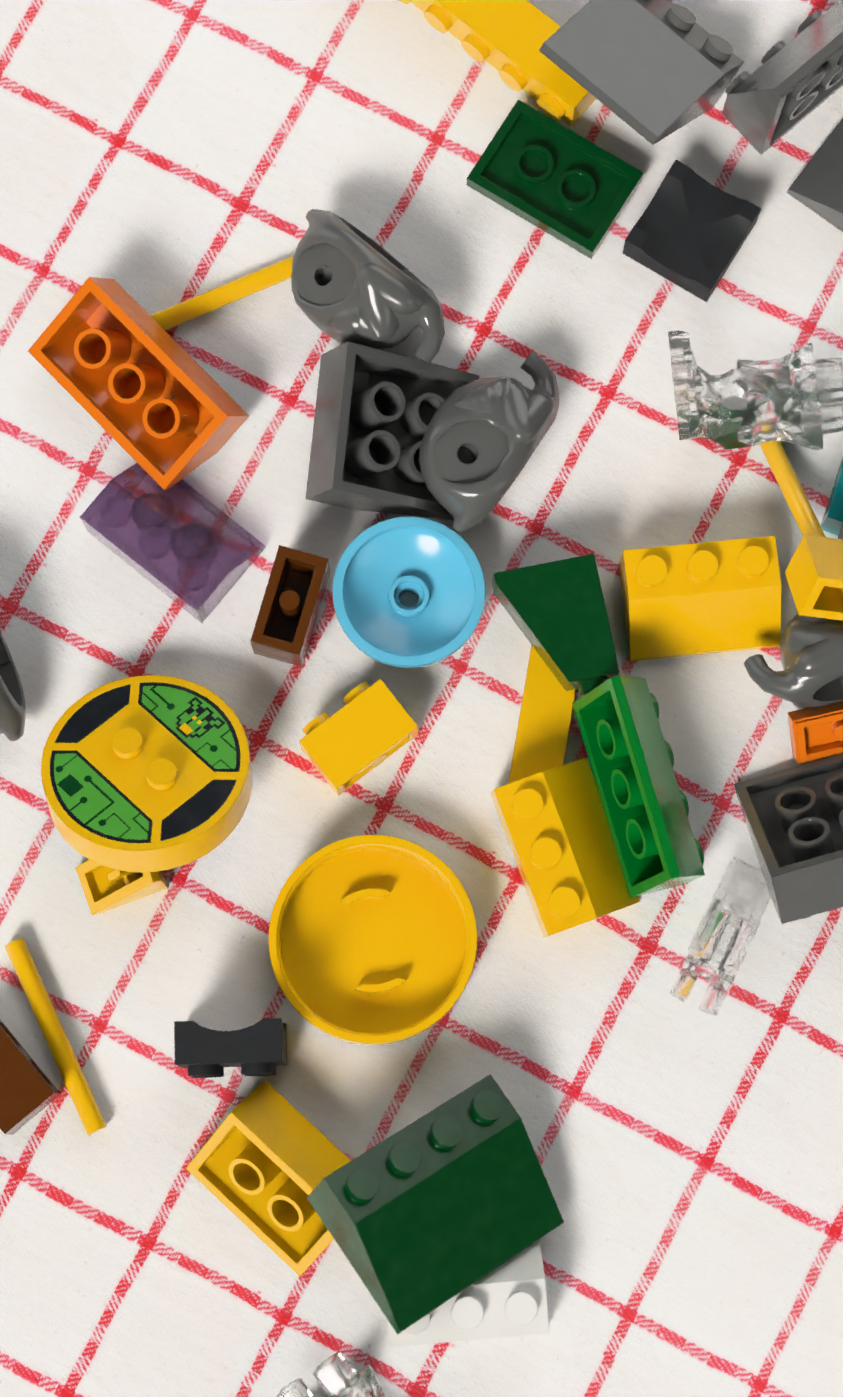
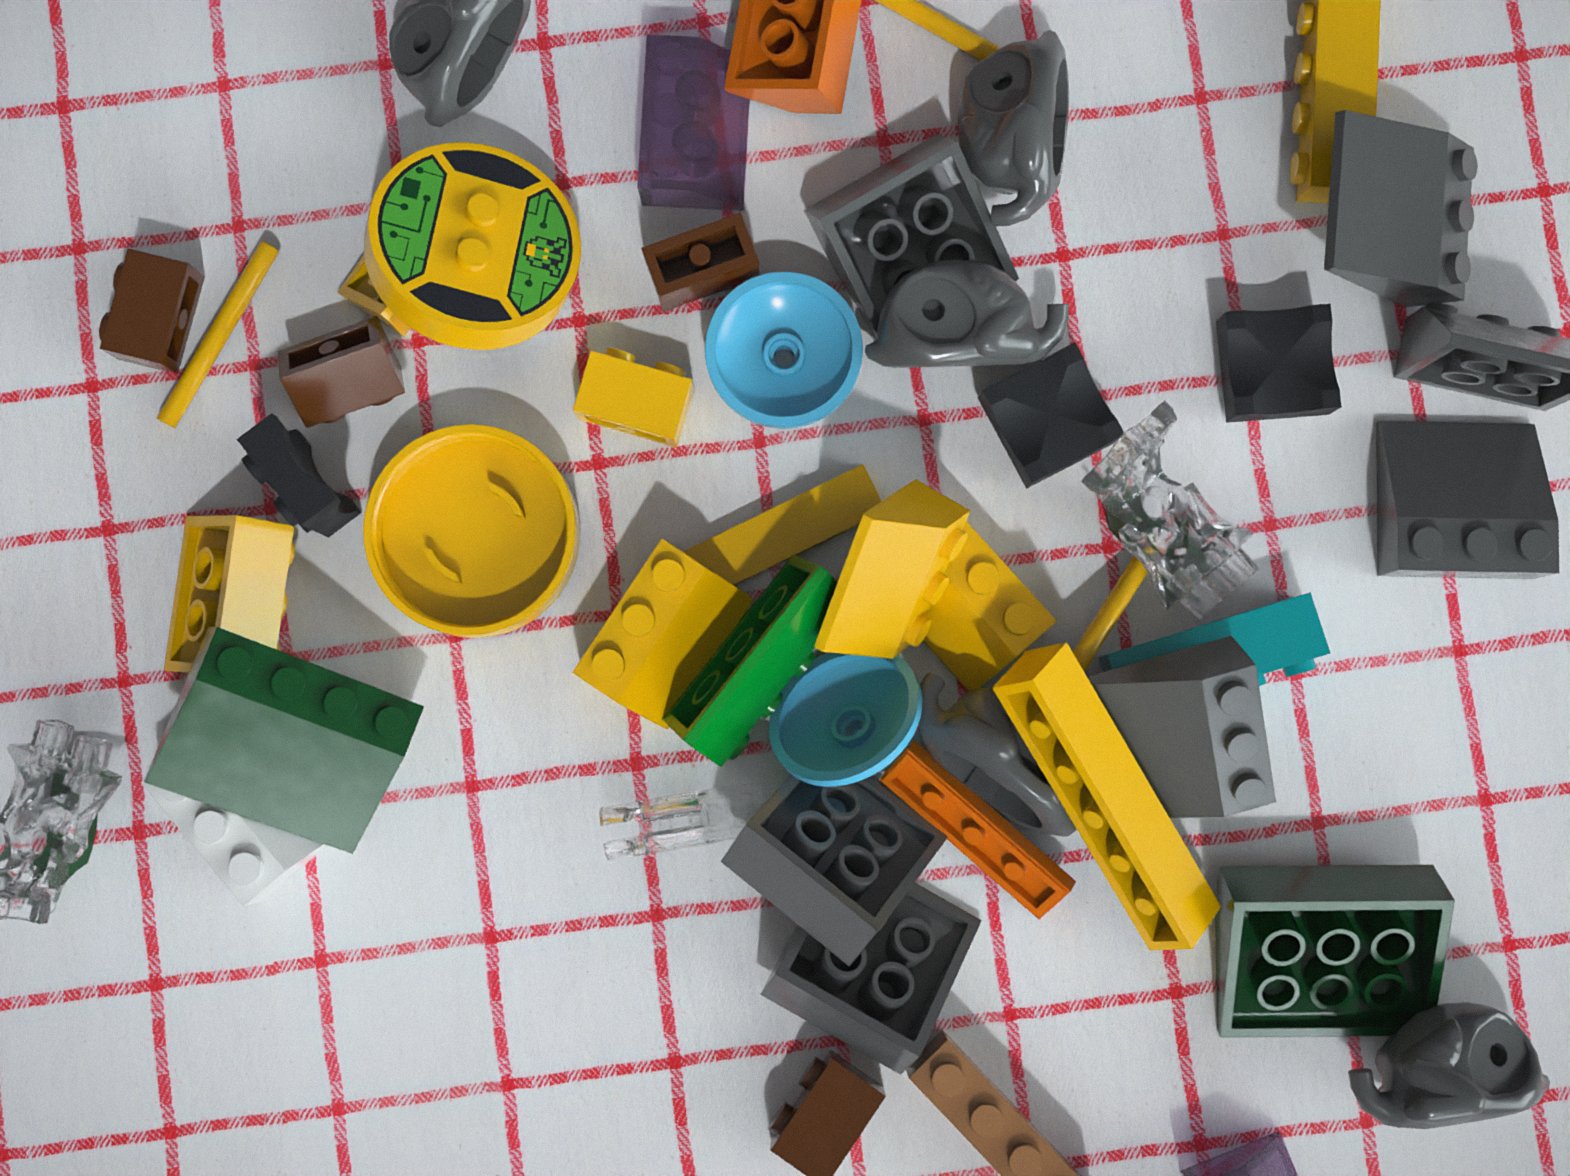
camera: 55 degrees right, 5 degrees up
(167, 952) = (341, 372): none -> reddish brown brick
(554, 179) = (1238, 217): dark green plate -> none
(563, 618) = (854, 478): dark green slope -> none
(608, 428) = (1050, 415): none -> black brick
(655, 628) = (894, 574): none -> yellow slope
(713, 747) = (845, 718): none -> medium azure dish

